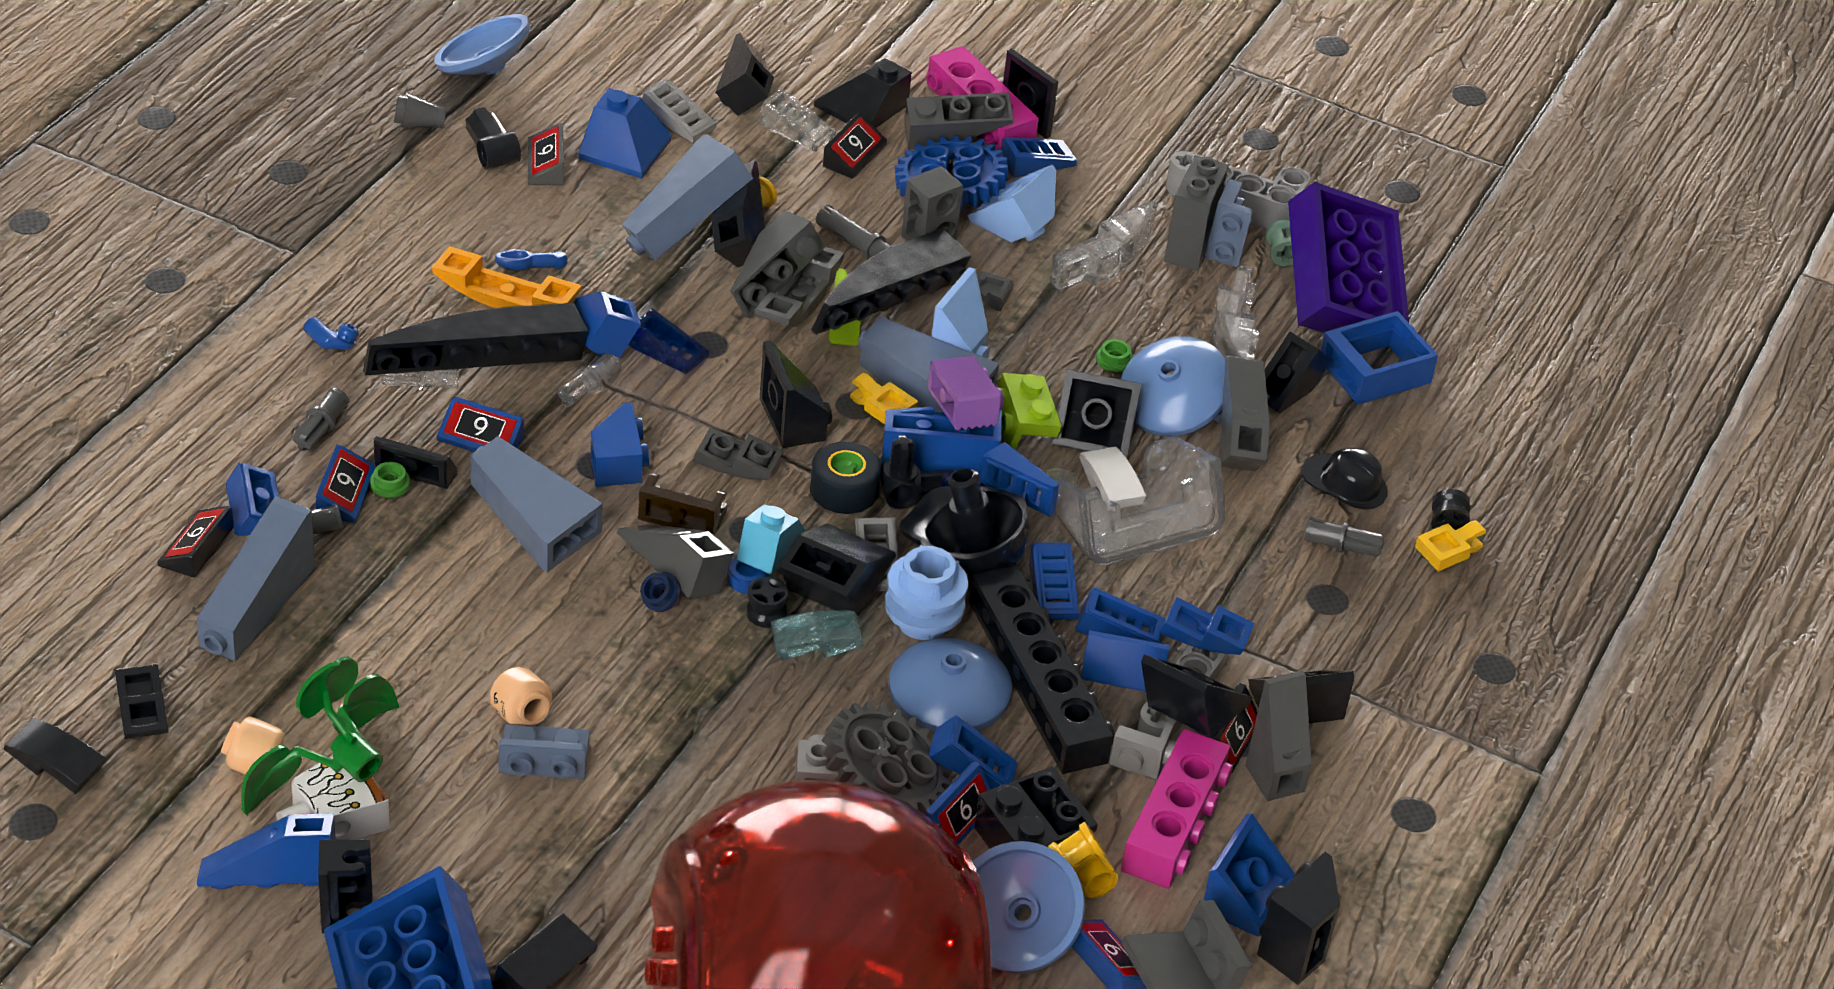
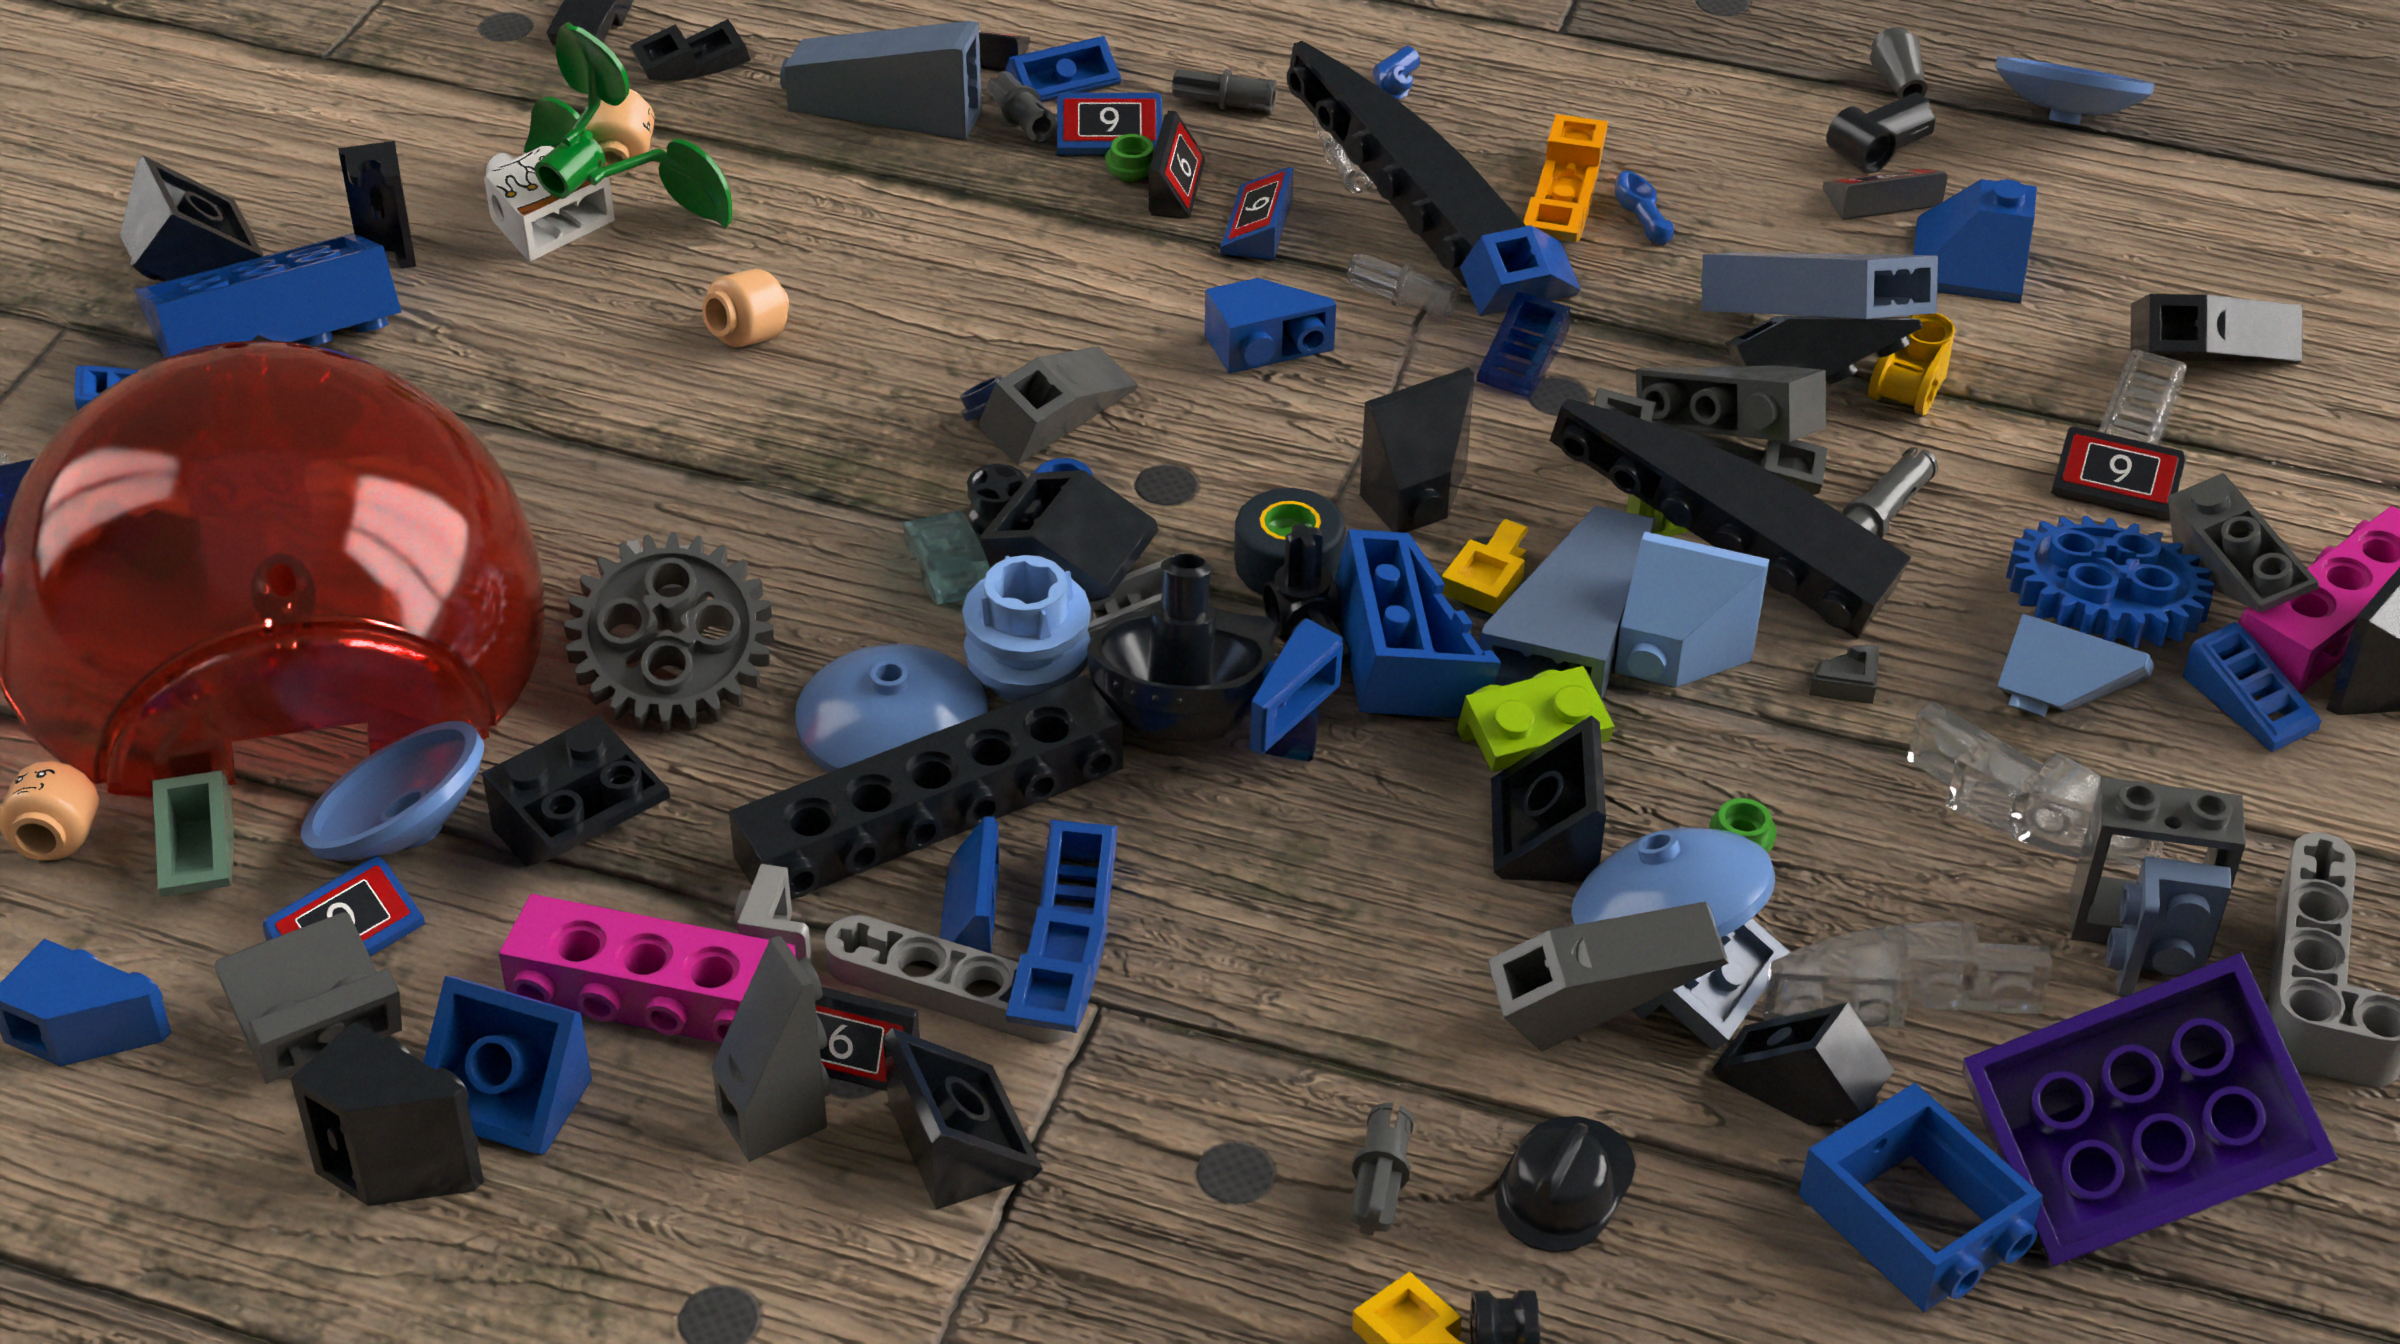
camera: 85 degrees right, 0 degrees up
(271, 856) = (440, 175): blue slope -> none
(535, 503) = (1118, 271): sand blue slope -> none
(543, 751) = (666, 349): sand blue bracket -> none
(670, 103) = (2079, 282): light grey slope -> none
(679, 509) = (1173, 400): dark brown hinge -> none
(727, 455) = (1309, 441): dark grey slope -> none
(767, 538) = (1120, 461): medium azure slope -> none
(872, 91) = (2272, 471): black slope -> none
(932, 204) = (1964, 548): dark grey brick -> none
(958, 804) = (644, 727): slope -> none
(959, 744) = (717, 682): blue slope -> none
(965, 392) = (1459, 592): medium lavender brick -> none
(1054, 579) = (1171, 781): blue slope -> none
(1088, 861) = (502, 865): yellow piece -> none
(1113, 476) = (1422, 841): white slope -> none
(1179, 507) = (1332, 877): clear windscreen -> none
(1190, 696) = (862, 928): black slope -> none

